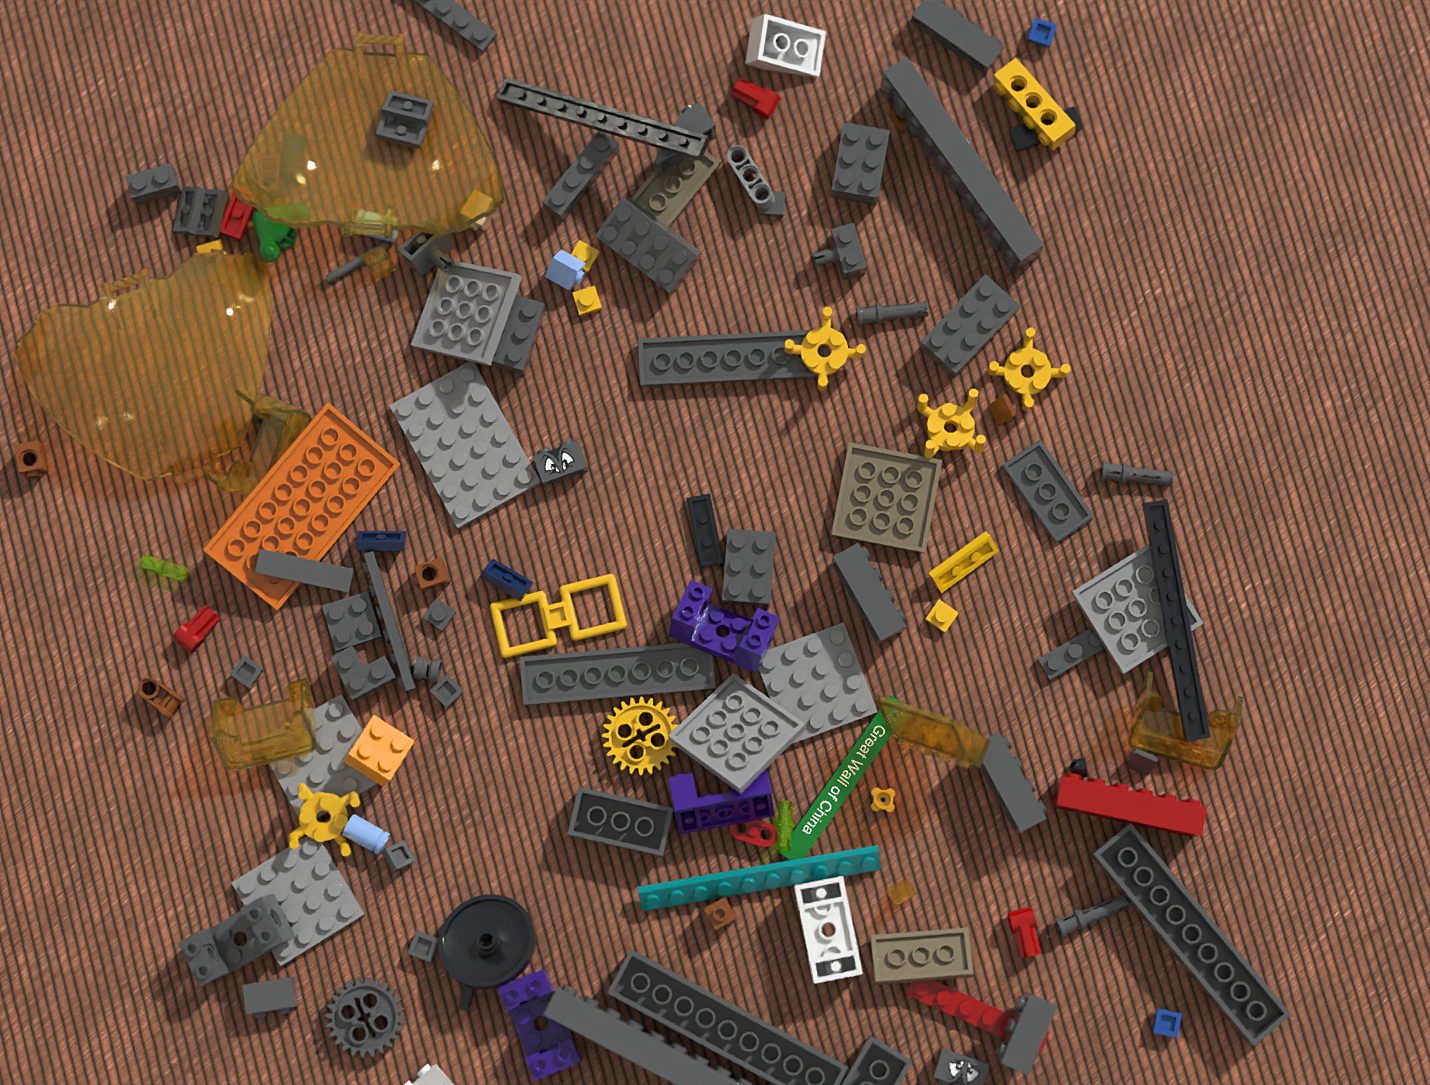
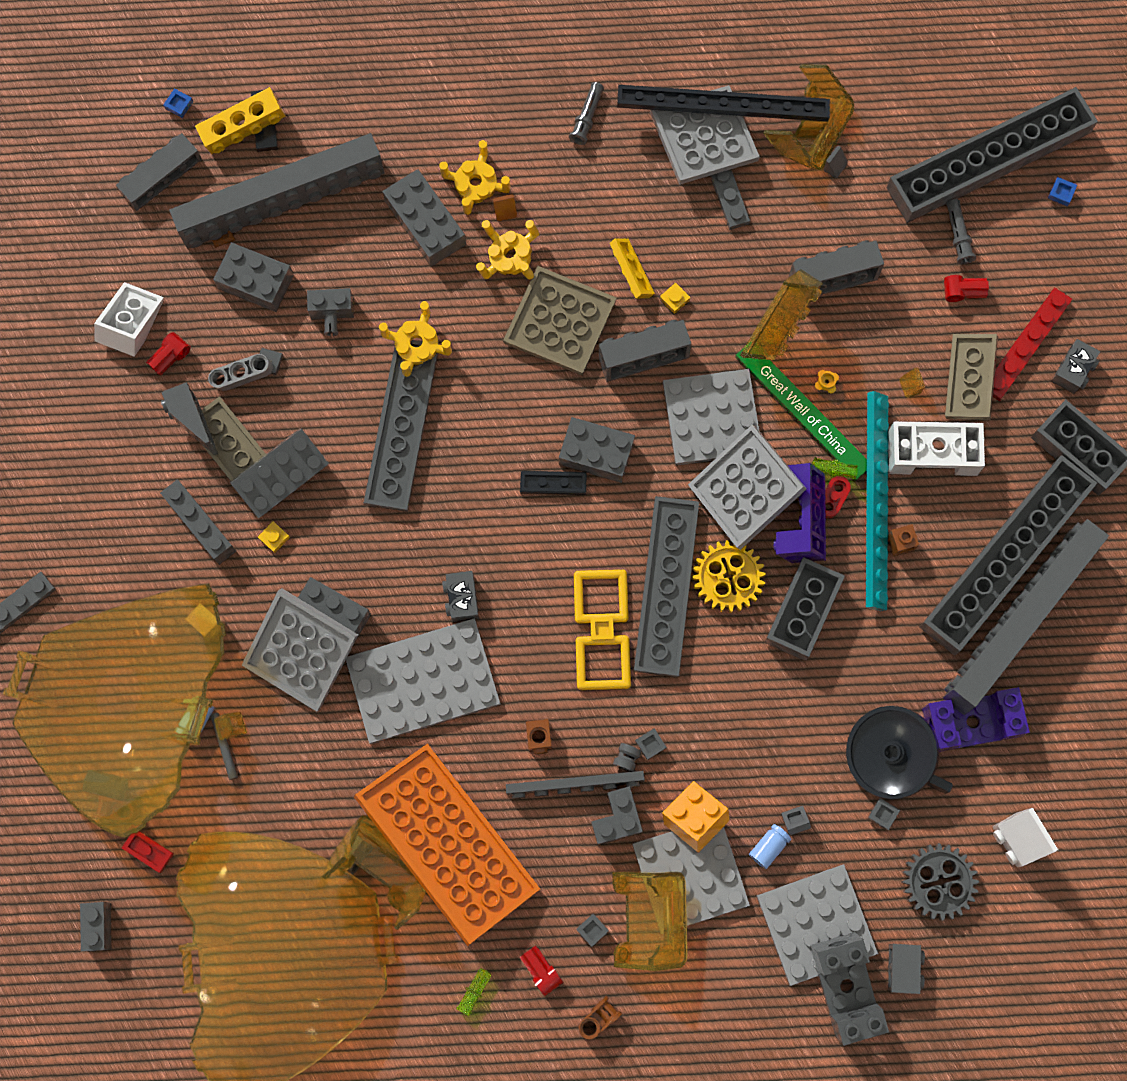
camera: 75 degrees left, 5 degrees down
(200, 212) = (135, 886): dark grey slope -> none
(206, 248) = (172, 884): yellow plate -> none
(272, 236) = (176, 820): green head -> none
(303, 570) = (508, 854): dark grey tile -> none
(328, 829) = (757, 878): yellow plate -> none
(352, 621) = (565, 820): dark grey plate -> none
(381, 541) = (496, 776): dark blue plate -> none
(405, 119) = (100, 671): dark grey slope -> none
(426, 250) = (231, 676): dark grey brick -> none
(439, 614) = (577, 737): dark grey plate -> none
(506, 579) = (559, 667): dark blue plate -> none
(565, 270) = (283, 553): light blue brick -> none
(587, 300) = (316, 542): yellow plate -> none
(603, 118) = (151, 484): plate -> none
(698, 620) = (665, 464): dark purple plate -> none
(880, 313) = (393, 290): dark grey pin -> none
(1025, 1032) = (1057, 299): dark grey brick -> none
(1047, 491) = (584, 188): dark grey tile -> none
(1079, 767) = (831, 213): black hinge -> none
(1128, 806) = (873, 177): red brick -> none

